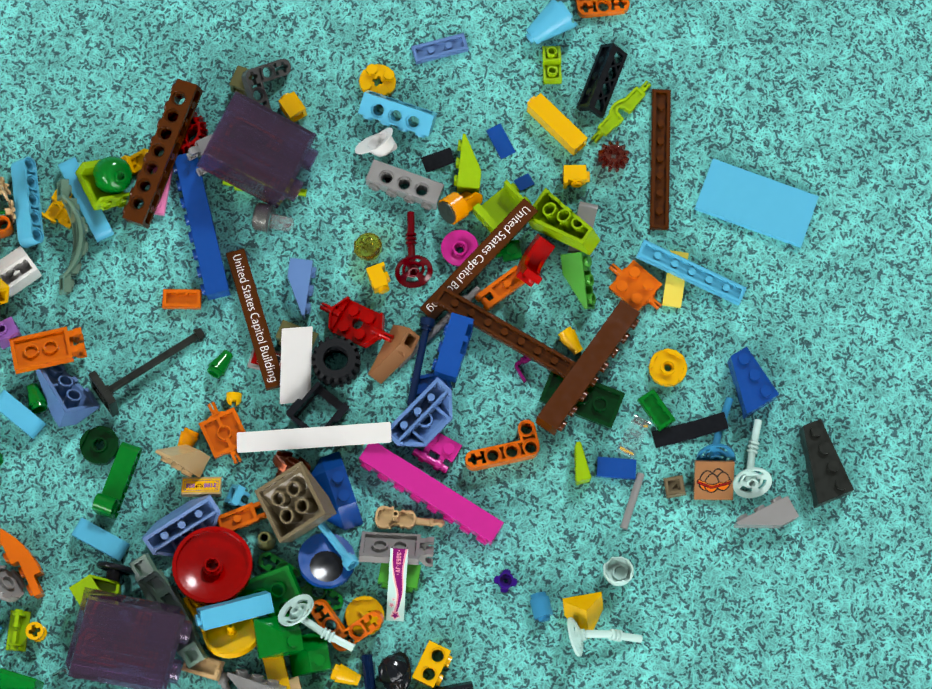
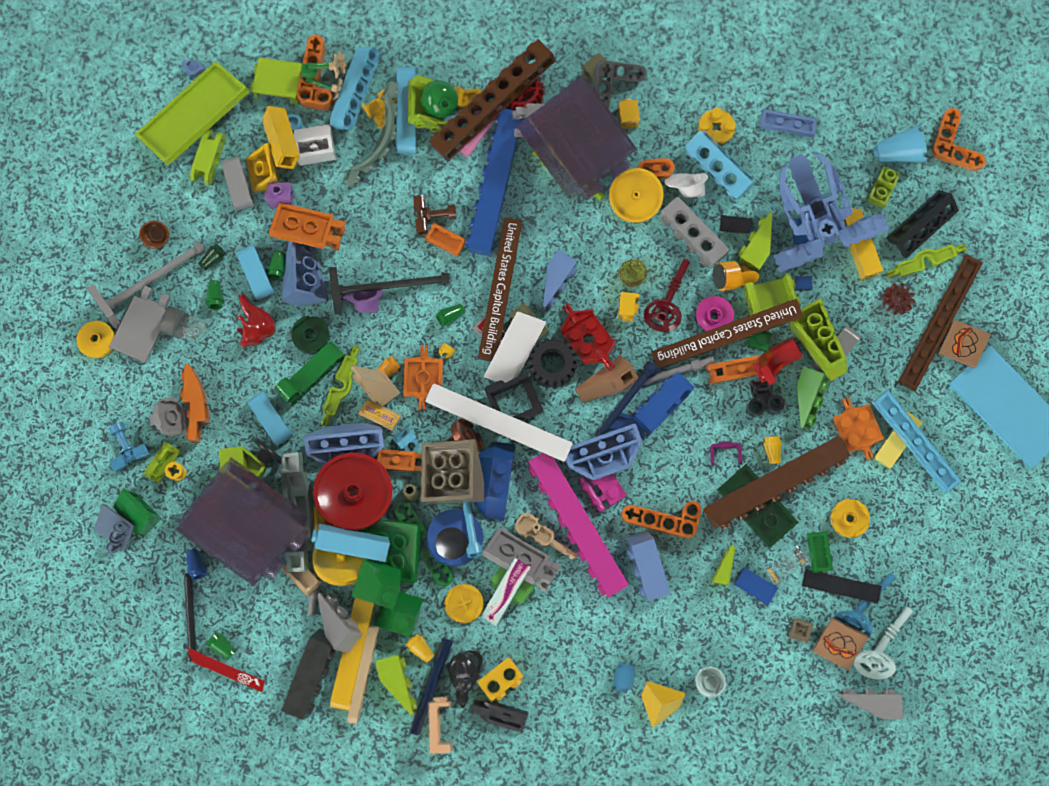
camera: 30 degrees right, 5 degrees up
(47, 461) = (259, 324): none -> red piece
(136, 390) = (365, 301): none -> medium lavender piece
(151, 286) = (424, 214): none -> reddish brown bar
(152, 488) = (336, 395): none -> lime piece
(266, 218) = (554, 205): clear piece -> none
(298, 615) = (407, 578): light aqua dish -> none
(336, 176) = (636, 195): none -> yellow piece
(339, 143) = (655, 166): none -> orange plate
(340, 628) = (436, 607): orange beam -> none
(505, 333) = (717, 413): reddish brown tile -> none
(507, 115) = (819, 214): none -> medium blue piece
(510, 580) = (609, 638): dark purple plate -> none
(511, 497) = (647, 565): none -> medium blue wedge
(537, 298) = (762, 395): none -> black piece
(575, 176) = (853, 299): yellow brick -> none
(580, 635) = (645, 723): light aqua dish -> none
(632, 501) = (754, 624): light grey bar -> none
(690, 167) = (964, 344): none -> medium nougat tile
(751, 383) = (920, 571): blue wedge -> none
(823, 465) = (949, 682): pearl dark grey wedge -> none

